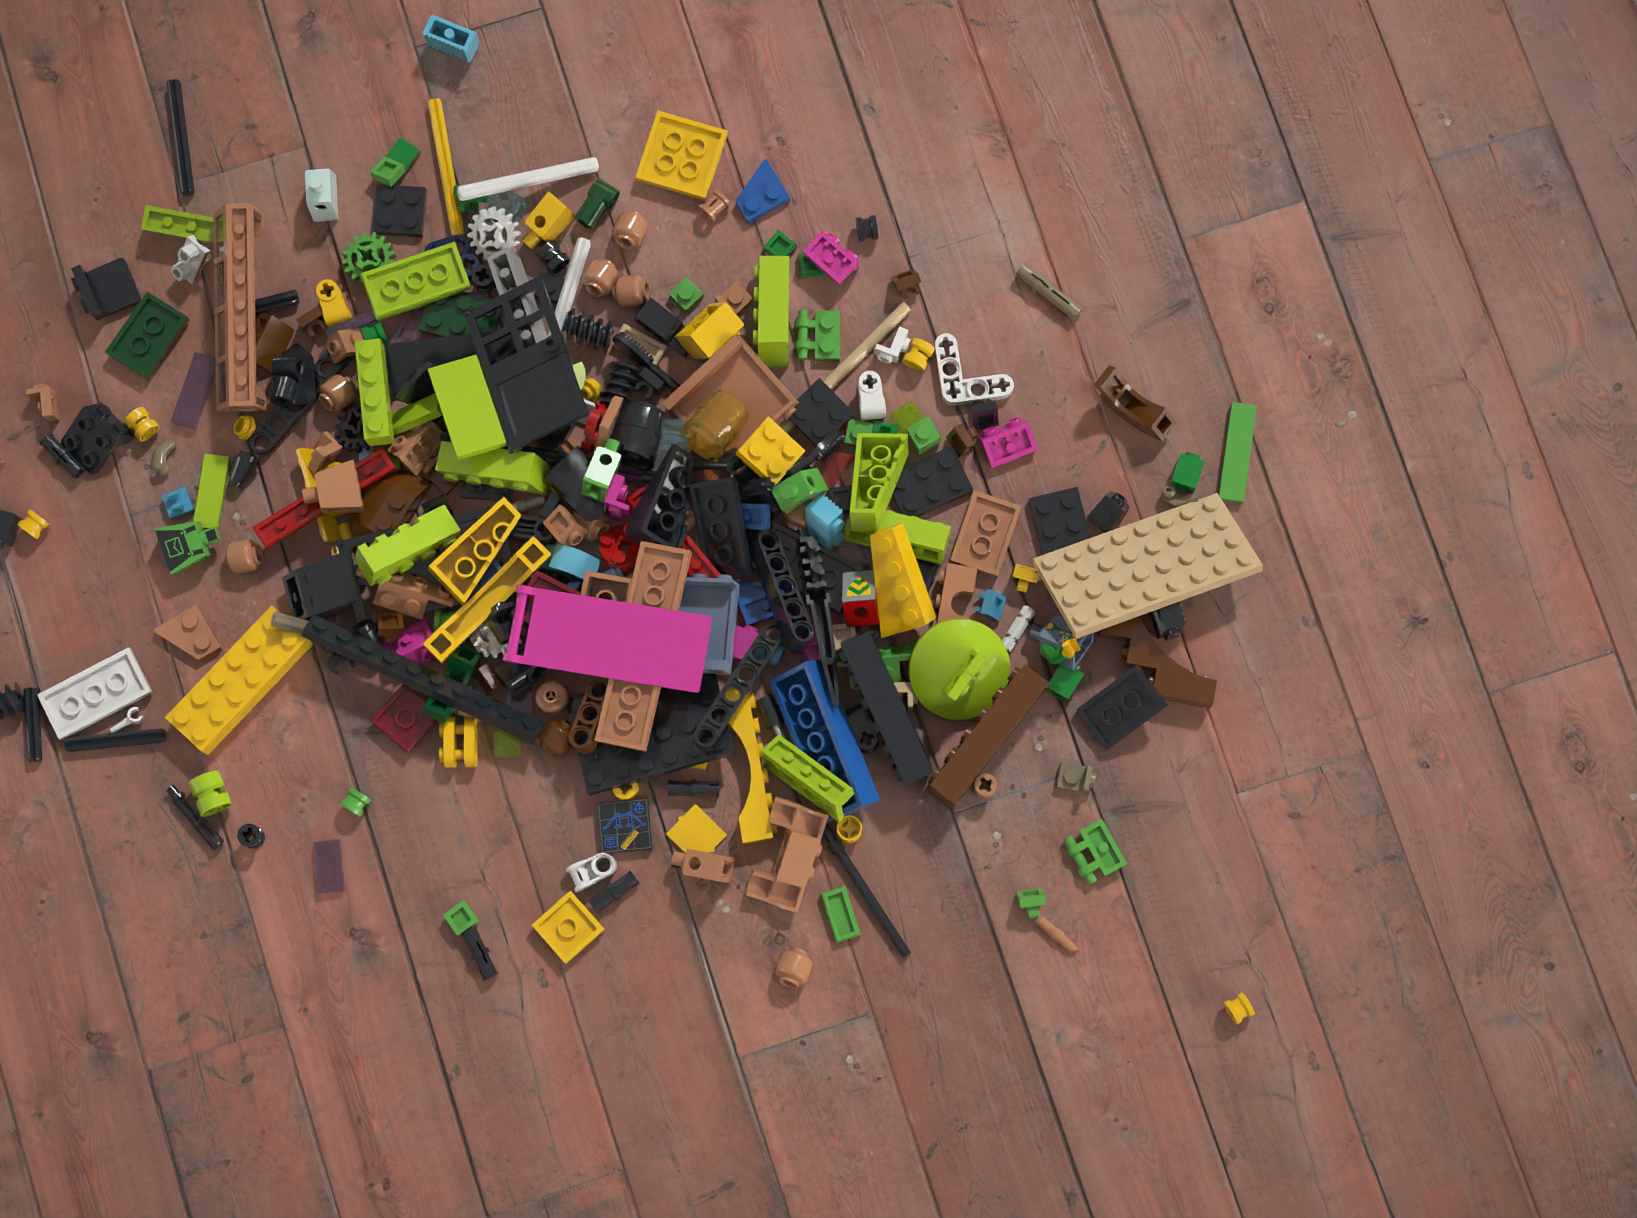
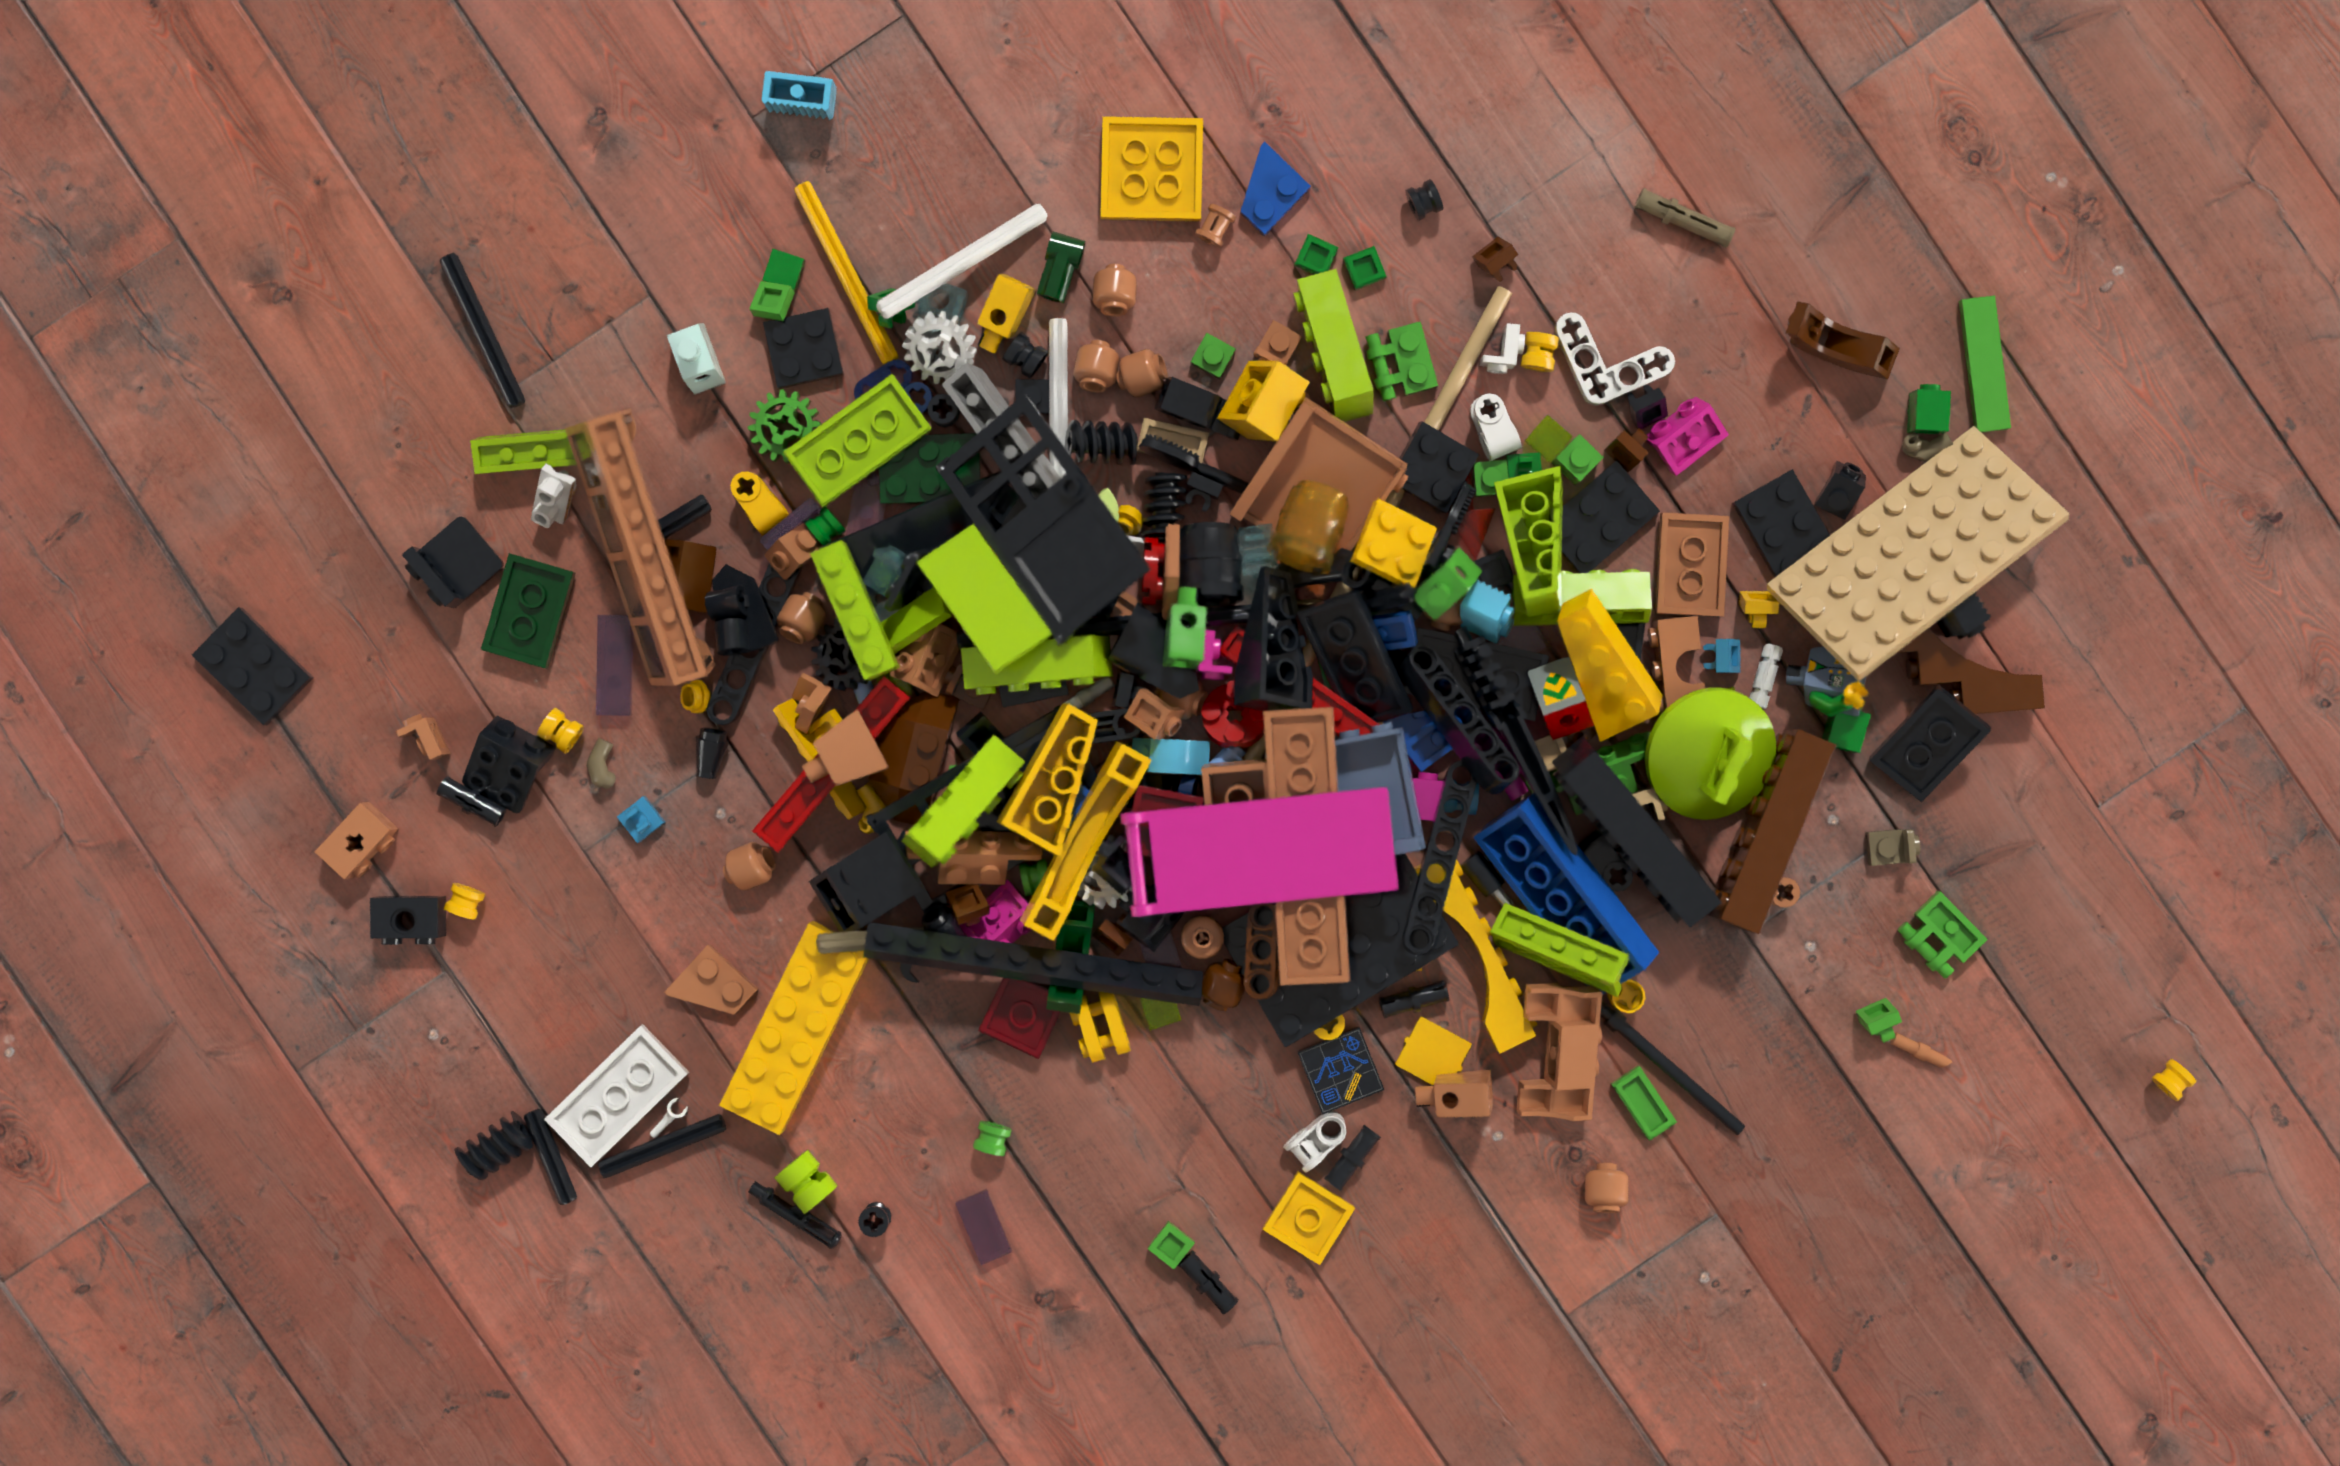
camera: 20 degrees left, 10 degrees up
(185, 544) = (670, 872): torso -> none
(212, 490) = (679, 792): lime tile -> none
(310, 320) = (736, 530): reddish brown tile -> none
(405, 371) = (884, 569): none -> clear light blue bracket
(831, 257) = (1390, 254): dark pink bracket -> none

